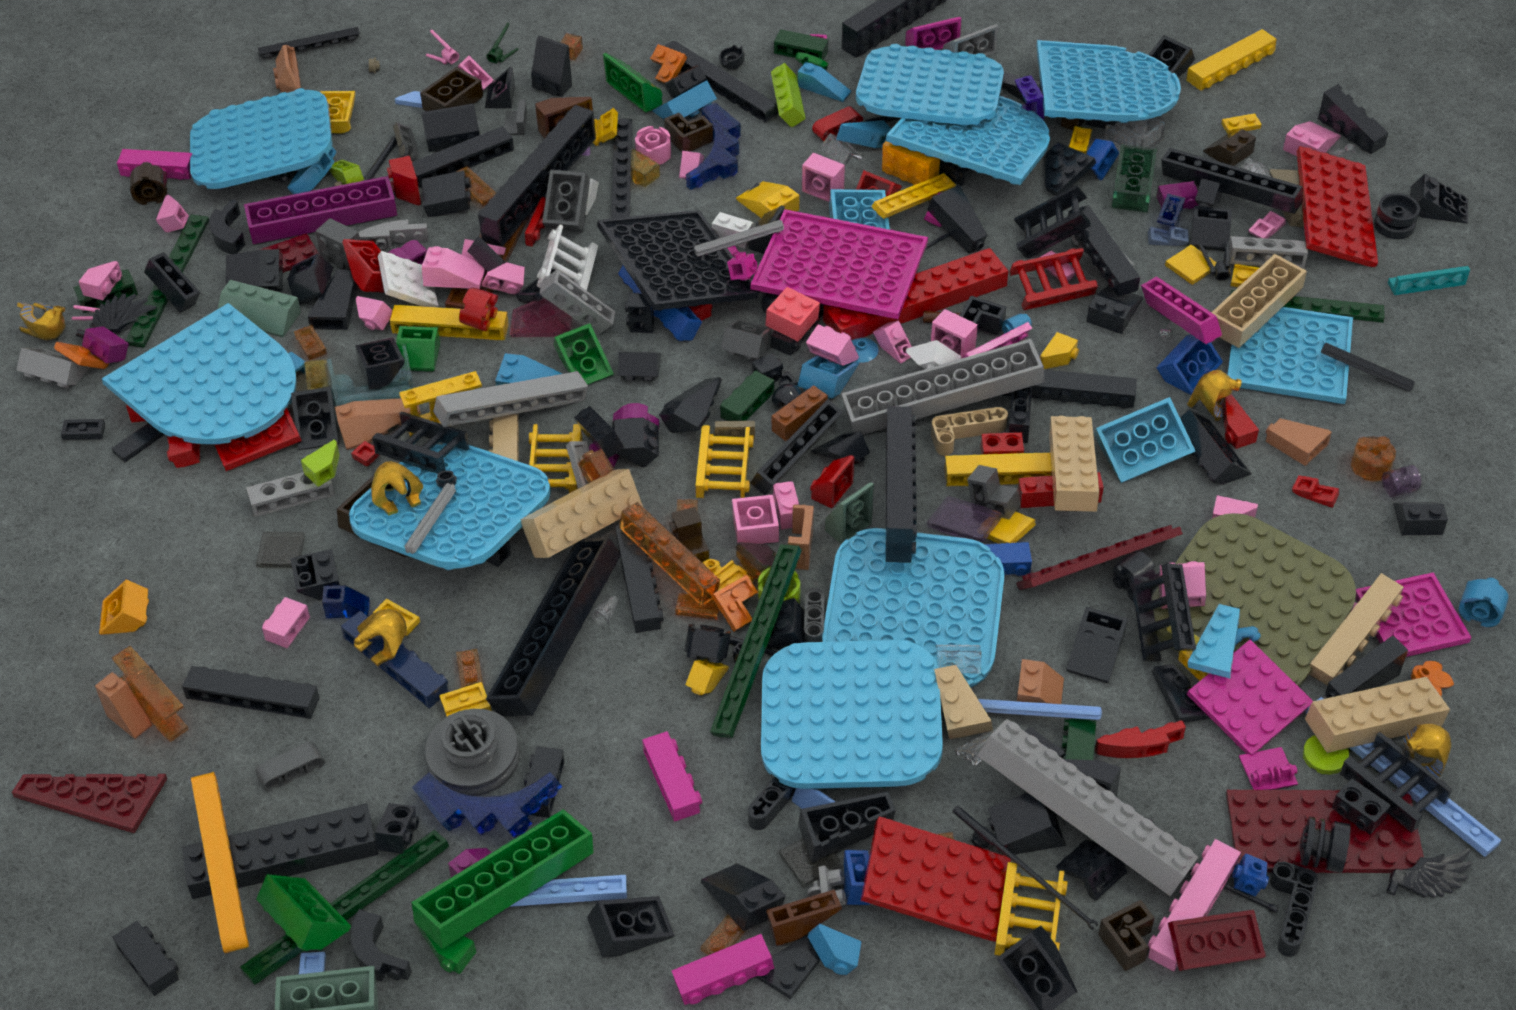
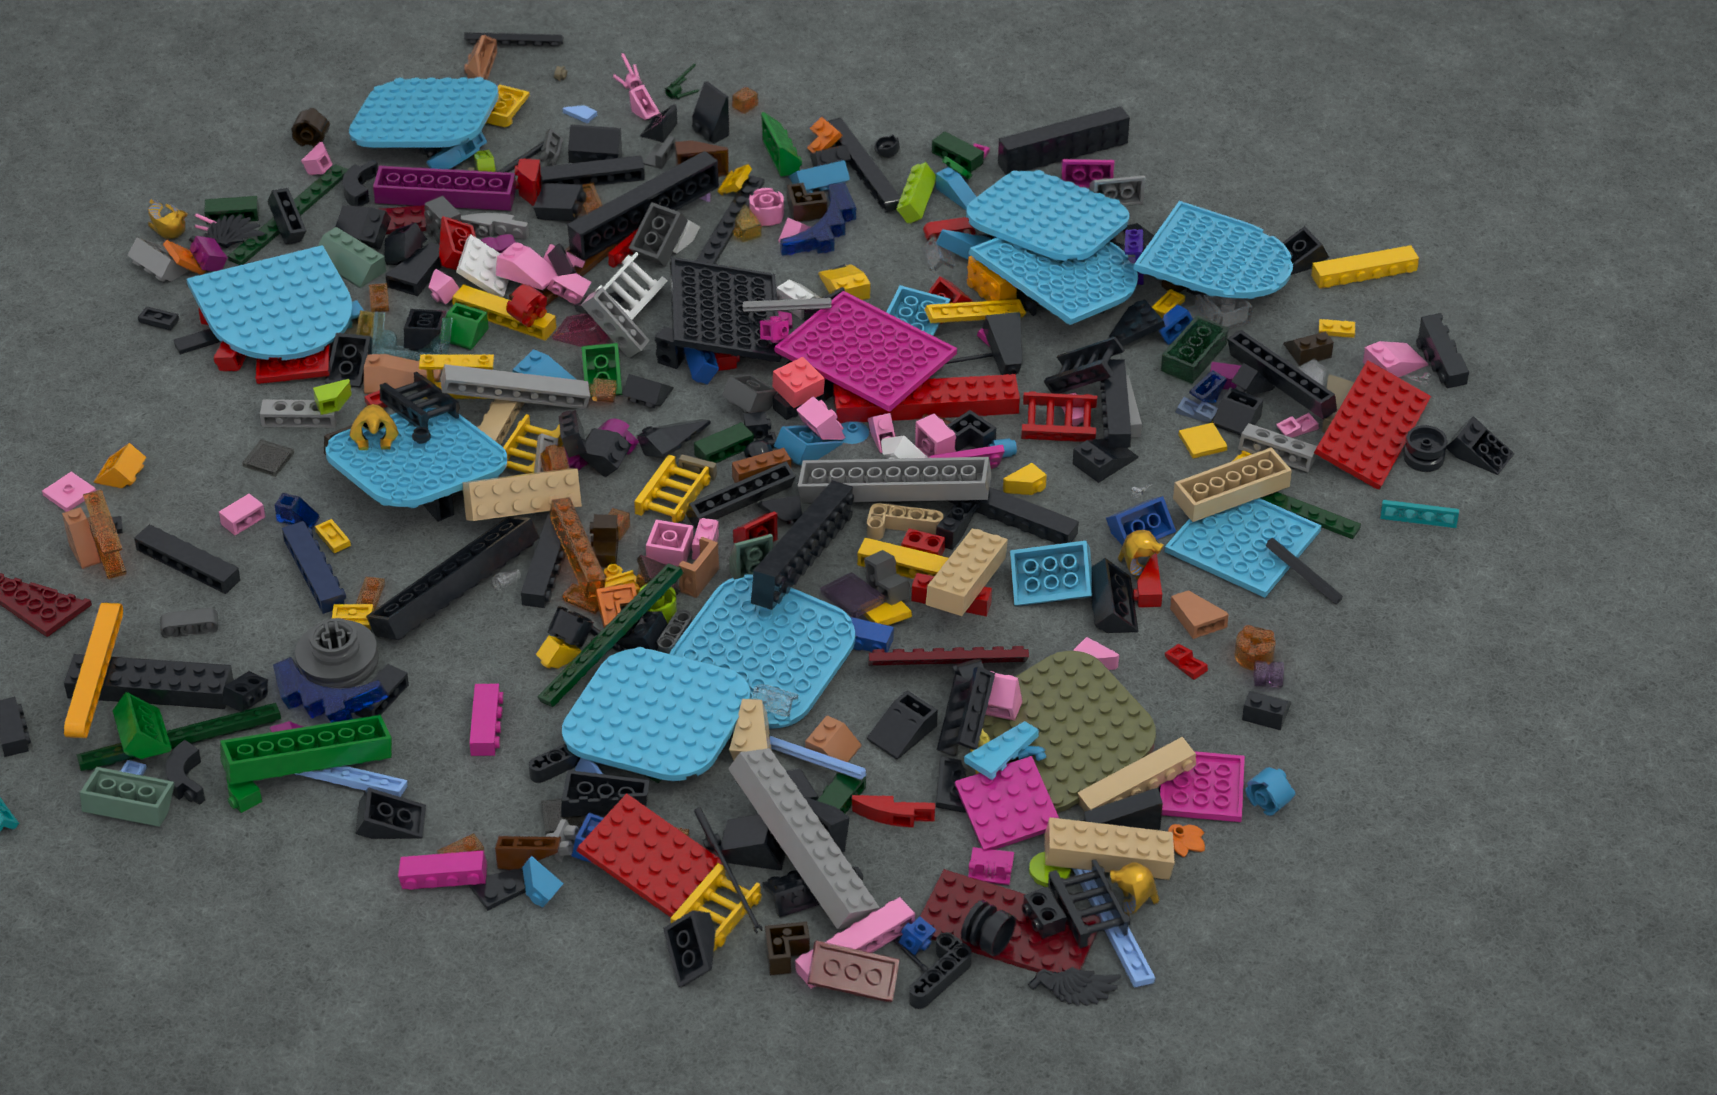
camera: 20 degrees right, 5 degrees down
(77, 653) = (68, 491): none -> bright pink plate
(100, 280) = (228, 198): bright pink slope -> none
(173, 163) = (338, 115): dark pink brick -> none
(314, 572) = (284, 479): black slope -> none
(383, 623) = (315, 537): pearl gold piece -> none
(430, 518) = (388, 460): light grey axle -> none
(452, 90) = (614, 112): dark brown brick -> none
(597, 376) = (603, 390): none -> clear orange brick
(744, 894) = (489, 821): black slope -> none
(821, 176) = (901, 270): bright pink brick -> none
(1181, 310) = (1152, 473): dark pink brick -> none
(1221, 268) = (1225, 452): black plant -> none

